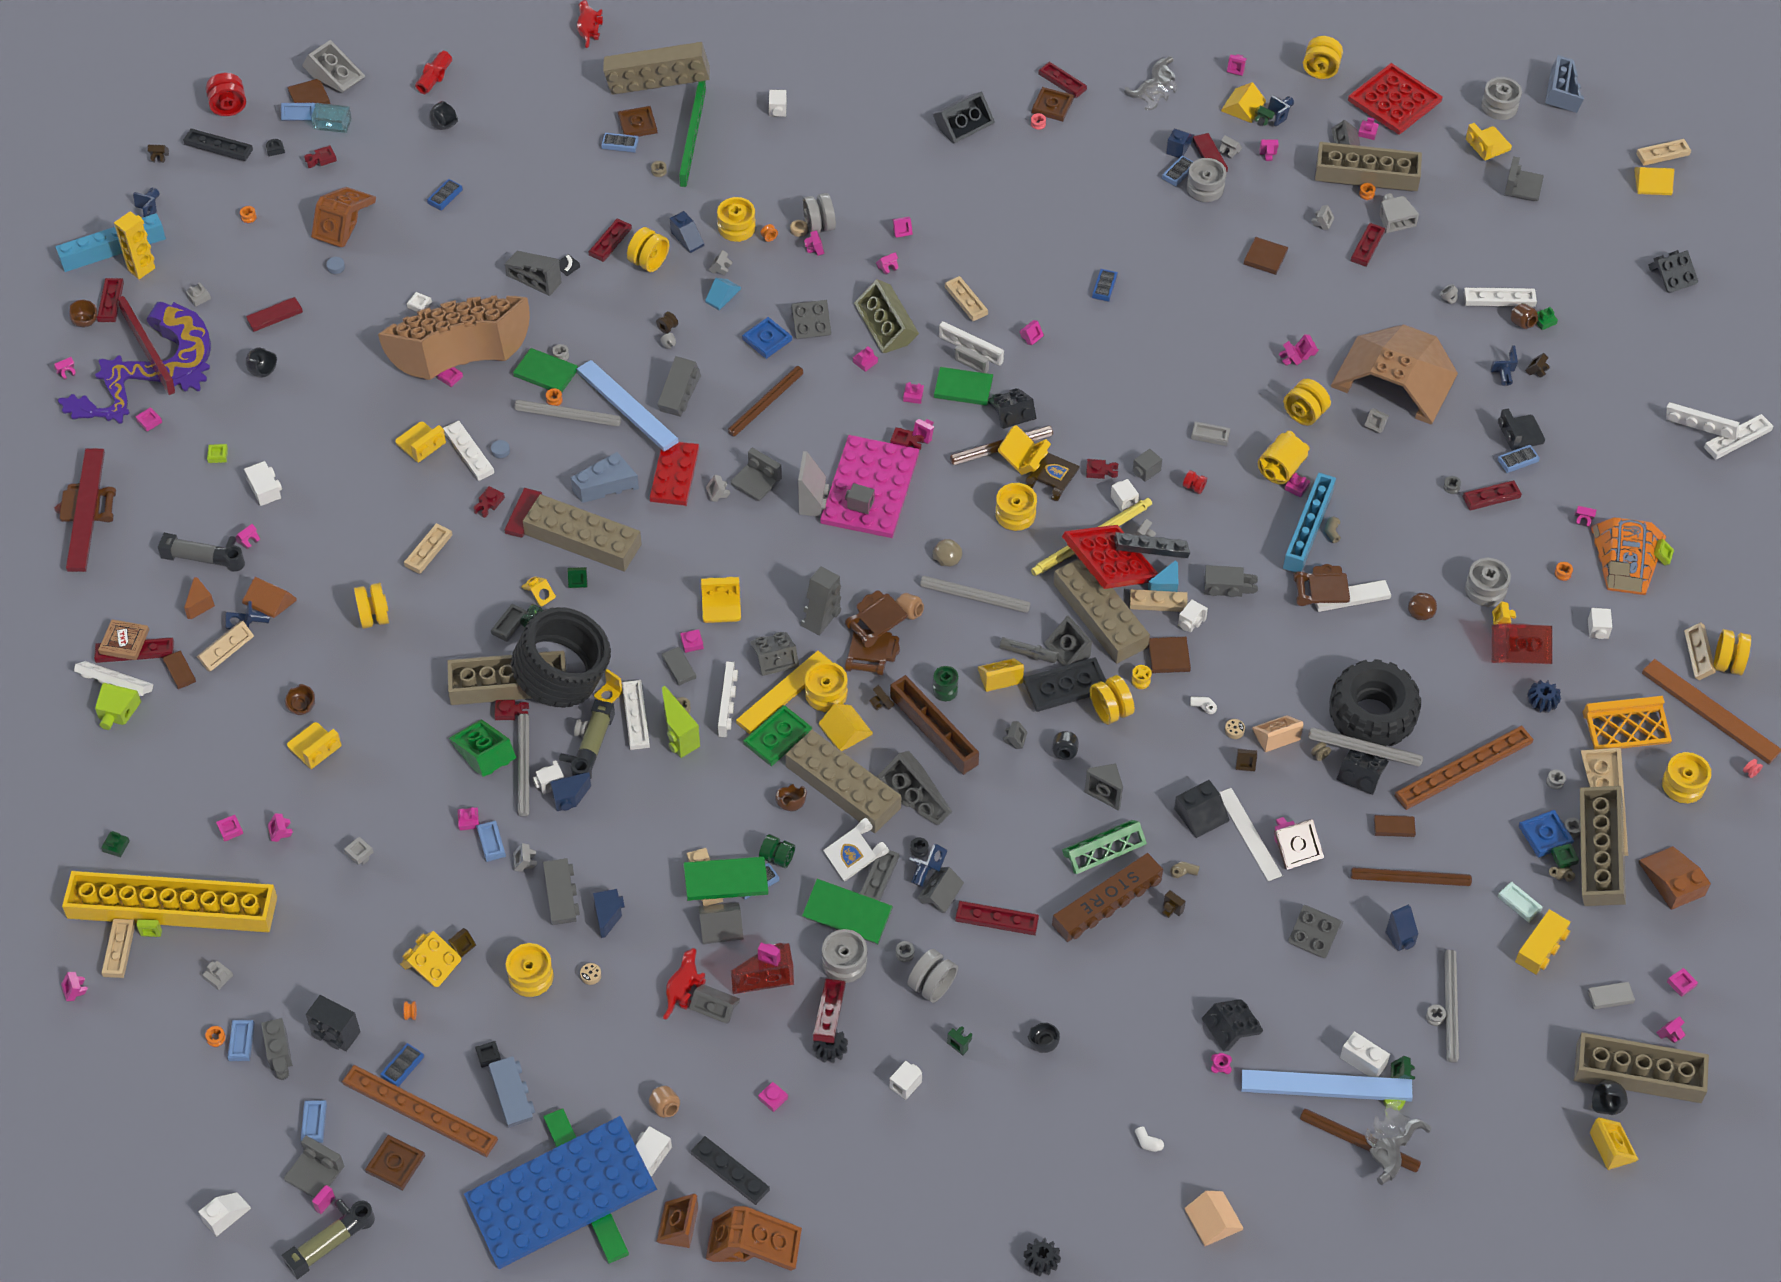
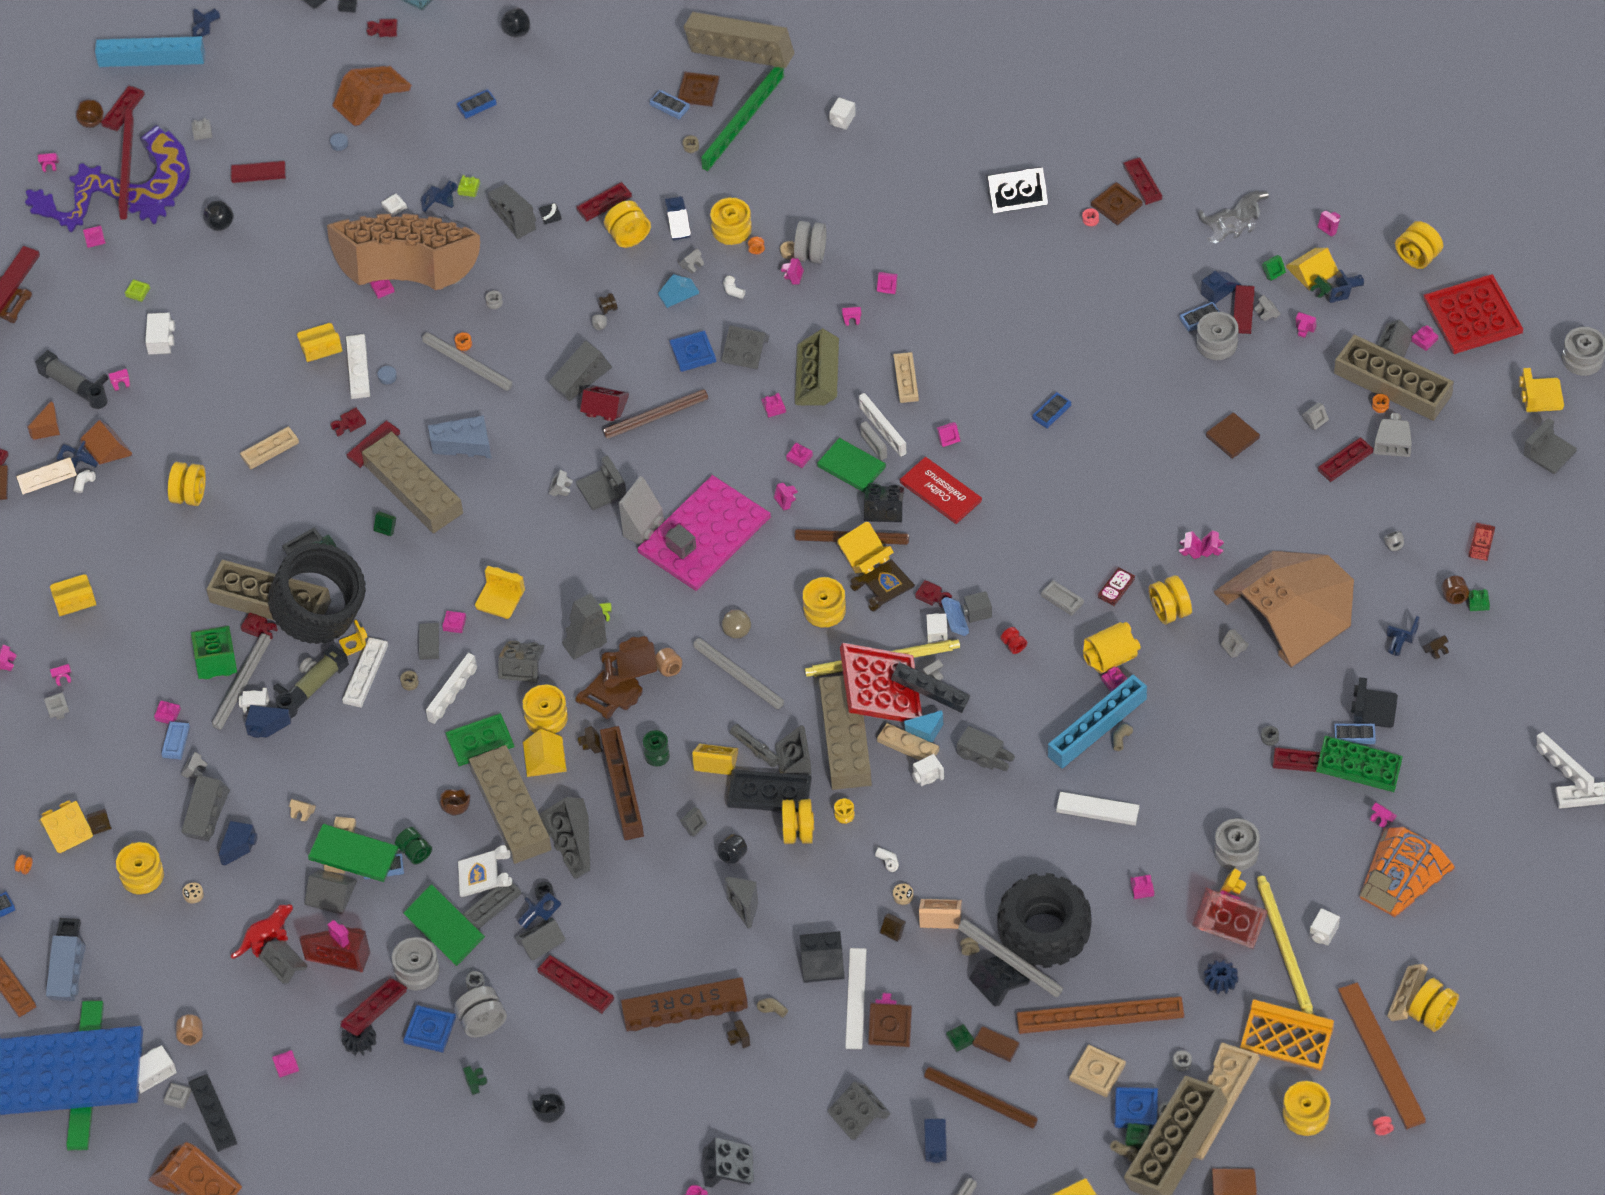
camera: 30 degrees right, 0 degrees up
(134, 244) = (161, 62): yellow brick -> none
(248, 214) = (290, 64): orange bush -> none
(262, 638) = (83, 478): none -> white arm
(300, 700) = (81, 549): reddish brown hair -> none
(343, 819) = (60, 672): none -> dark pink tile
(460, 280) = (441, 196): none -> dark blue bracket
(479, 265) = (468, 186): none -> lime tile
(536, 584) = (345, 516): yellow bracket -> none
(545, 370) = (470, 312): green tile -> none
(627, 405) = (523, 373): light blue tile -> none
(645, 857) = (299, 806): none -> tan tile
(674, 474) = (531, 454): red plate -> none
(678, 1221) = (144, 1139): dark orange slope -> none
(681, 727) = (389, 700): lime slope -> none
(686, 1168) = (177, 1096): none -> light grey tile
(715, 406) = (603, 402): none -> dark red slope
(768, 276) = (731, 289): none -> white arm
(779, 695) = (501, 703): yellow tile -> none
(890, 1010) = (429, 1028): none -> blue plate
(905, 438) = (763, 497): dark red plate -> none
(906, 1080) = (406, 1095): white brick -> none
(1052, 381) = (940, 490): none -> red tile
(1101, 839) = (712, 949): fence -> none
(1136, 481) = (955, 616): none -> medium blue tile
(1169, 655) = (885, 800): reddish brown tile -> none
(1214, 113) = (1274, 267): none -> green tile
(1249, 409) = (1116, 586): none -> tile
(1326, 585) = (1078, 789): reddish brown piece -> none
(1360, 832) = (959, 1037): none -> dark green tile
(1422, 606) = (1160, 845): reddish brown hair -> none
(1430, 646) = (1142, 886): none -> dark pink tile
(1492, 815) = (1097, 1071): none -> tan tile
(1499, 296) = (1444, 561): white plate -> none
(1516, 272) = (1481, 541): none -> clear red tile
(1520, 902) = (1070, 1162): light aqua tile -> none
(1539, 481) = (1359, 764): none -> green tile
(1561, 575) = (1330, 860): orange bush -> none
(1580, 654) = (1284, 945): none -> light yellow piece
(1663, 551) = (1438, 881): lime tile -> none

